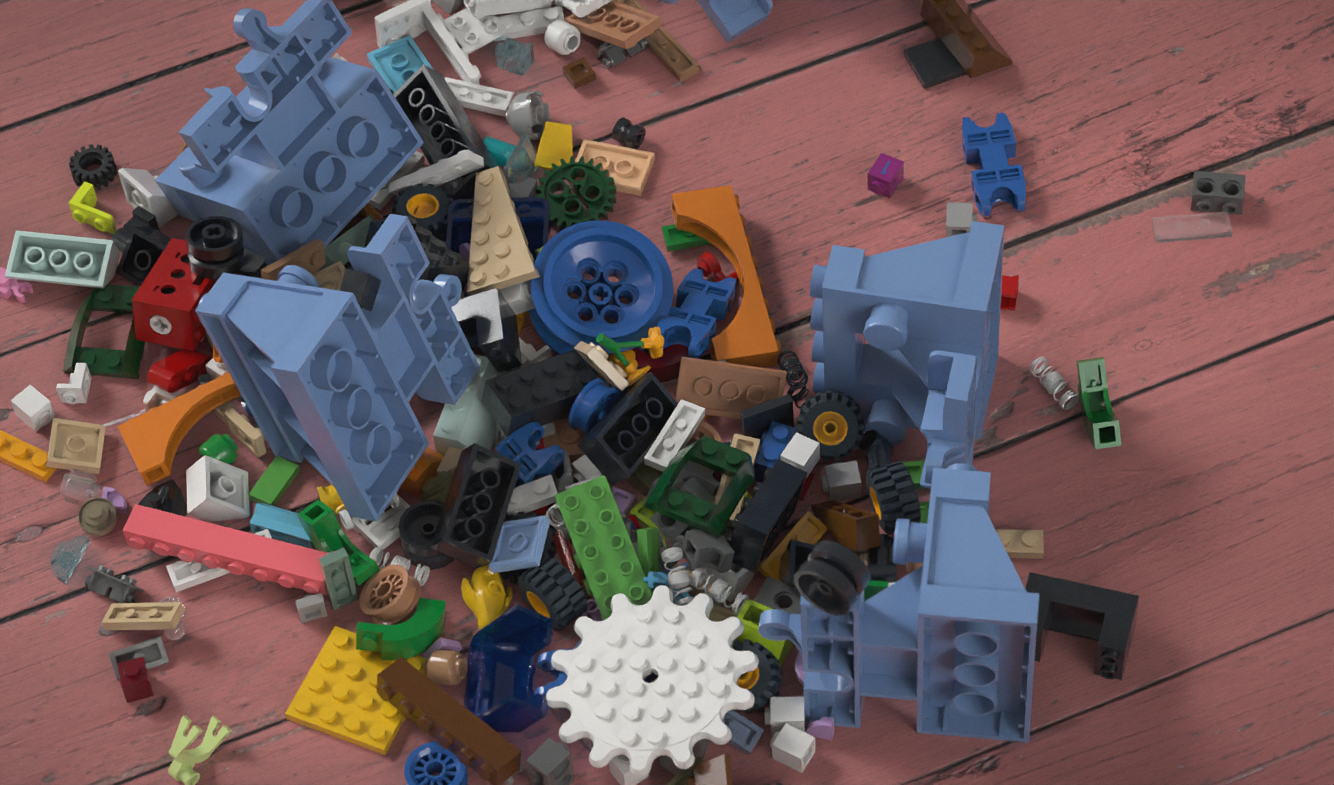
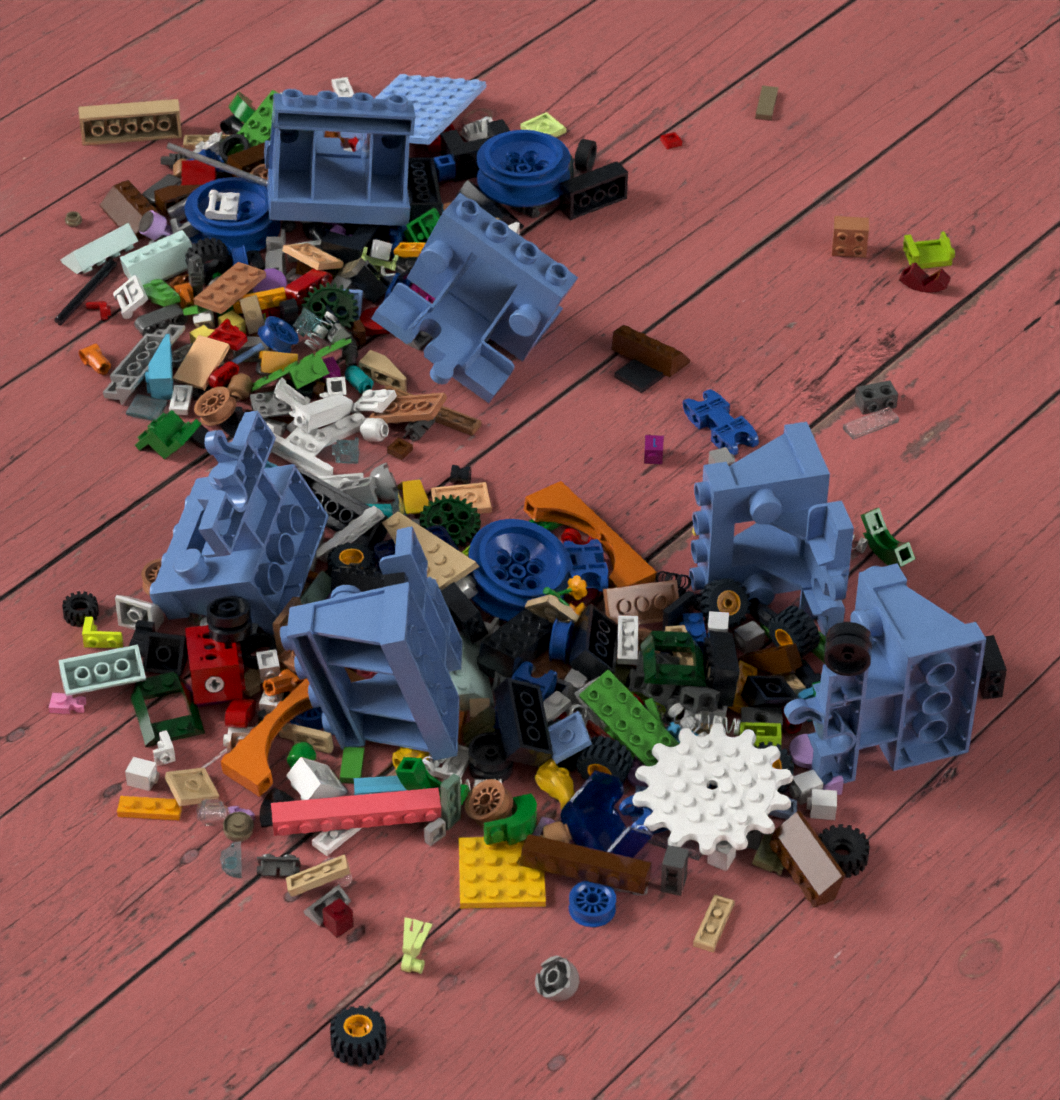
camera: 30 degrees left, 10 degrees down
(489, 117) = (361, 489): none -> light grey hinge

